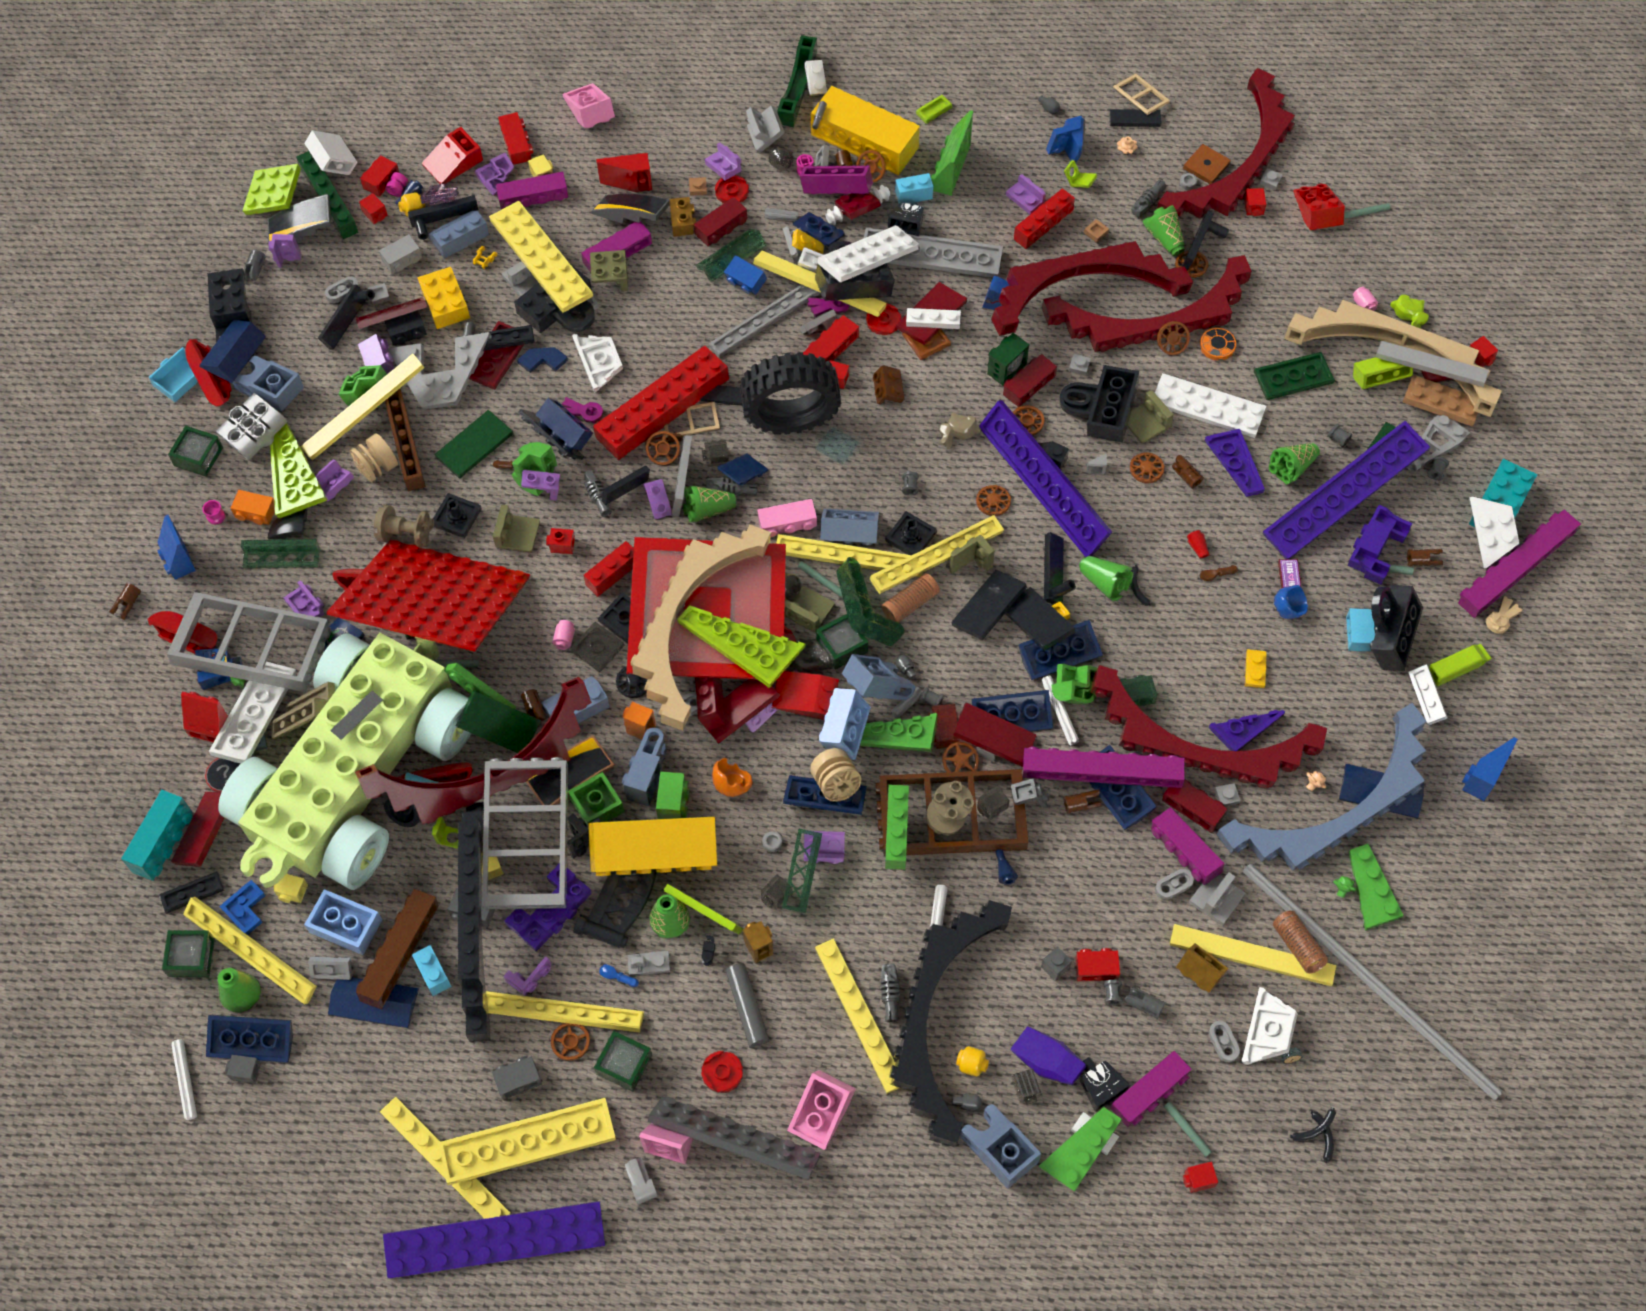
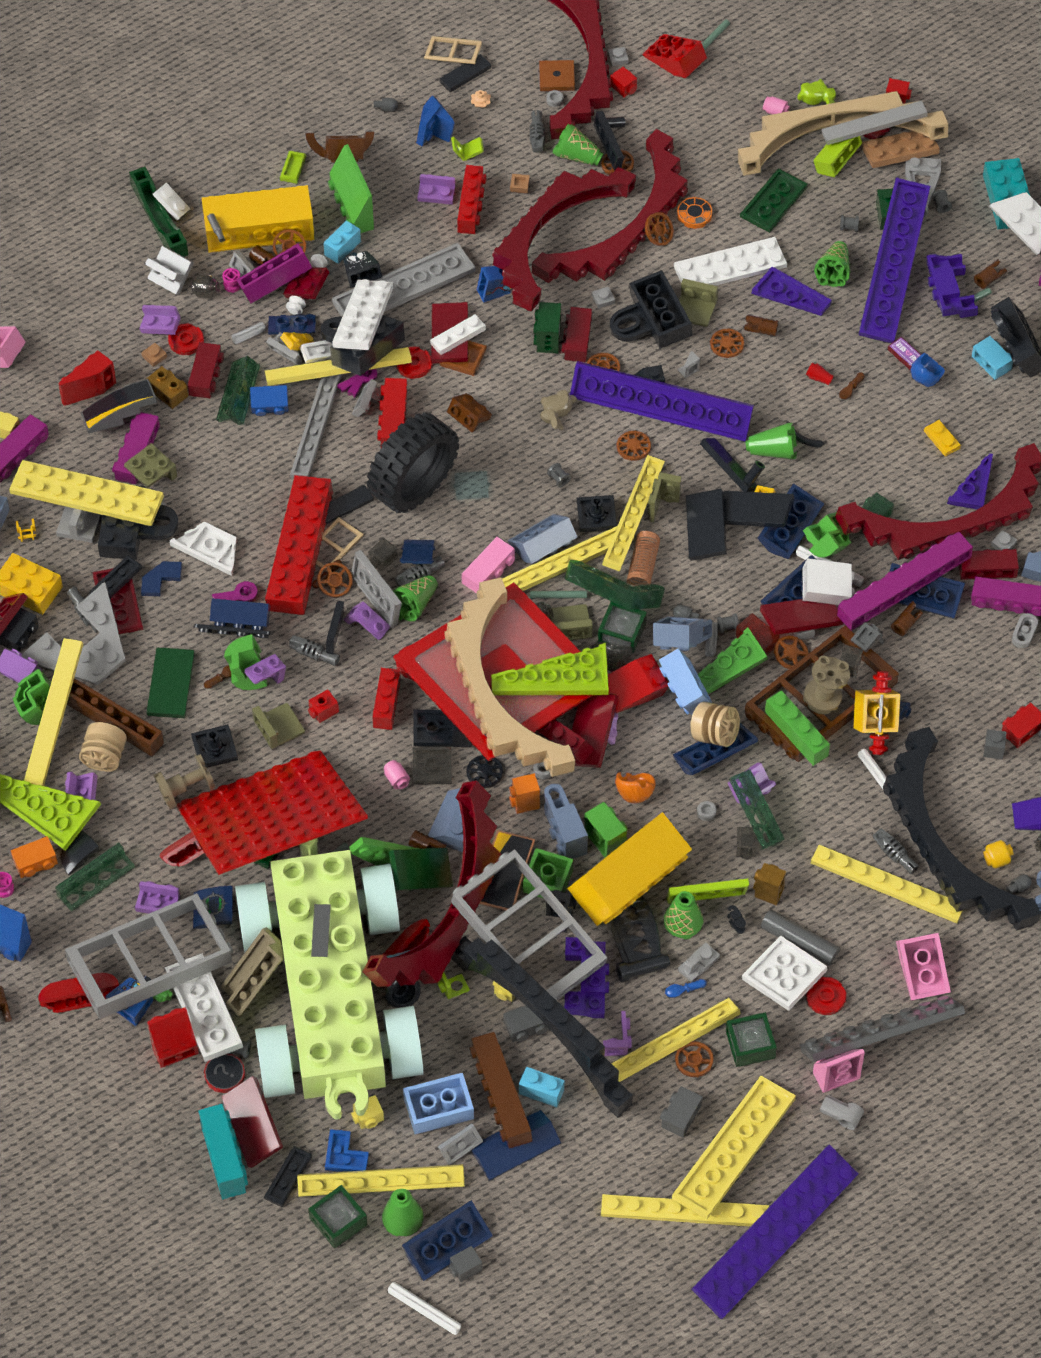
camera: 40 degrees left, 5 degrees down
(703, 1026) = (784, 973): none -> white plate
(977, 863) = (877, 712): none -> yellow brick
(982, 116) = (335, 144): none -> reddish brown piece
(1039, 722) = (827, 581): none -> white brick

